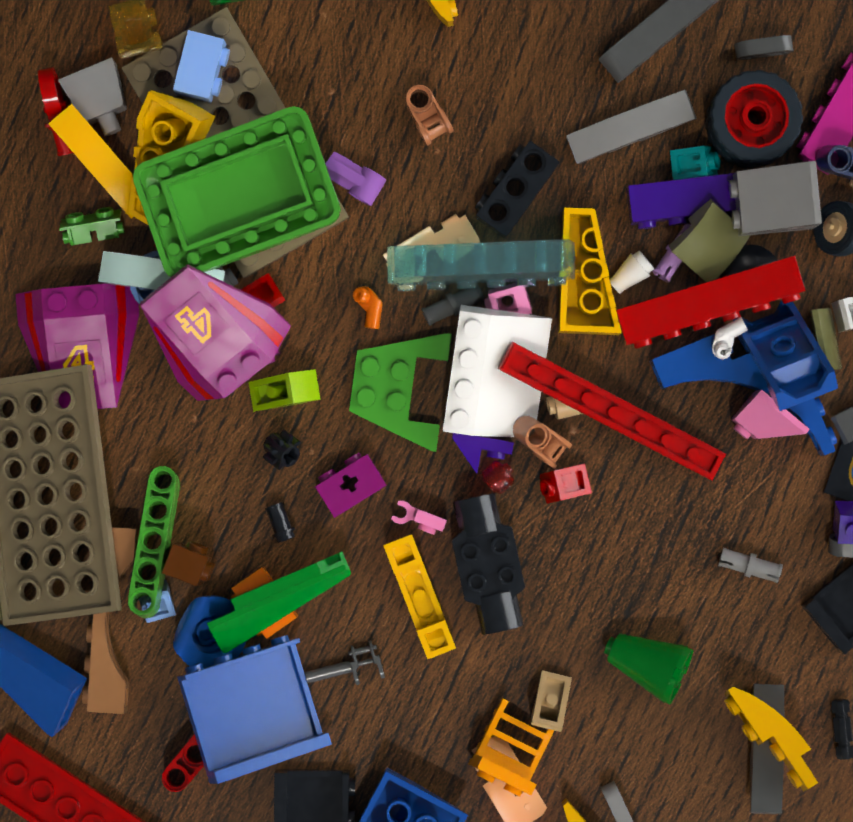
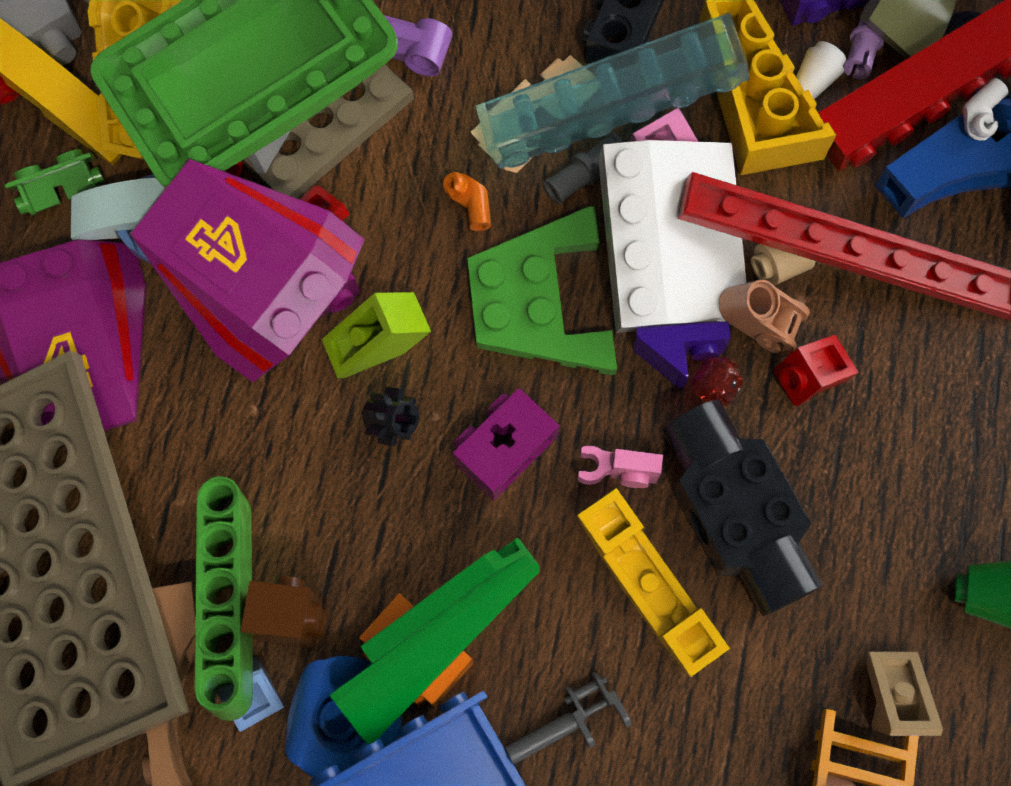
camera: 20 degrees left, 15 degrees down
(280, 522) = (413, 525): black pin -> none

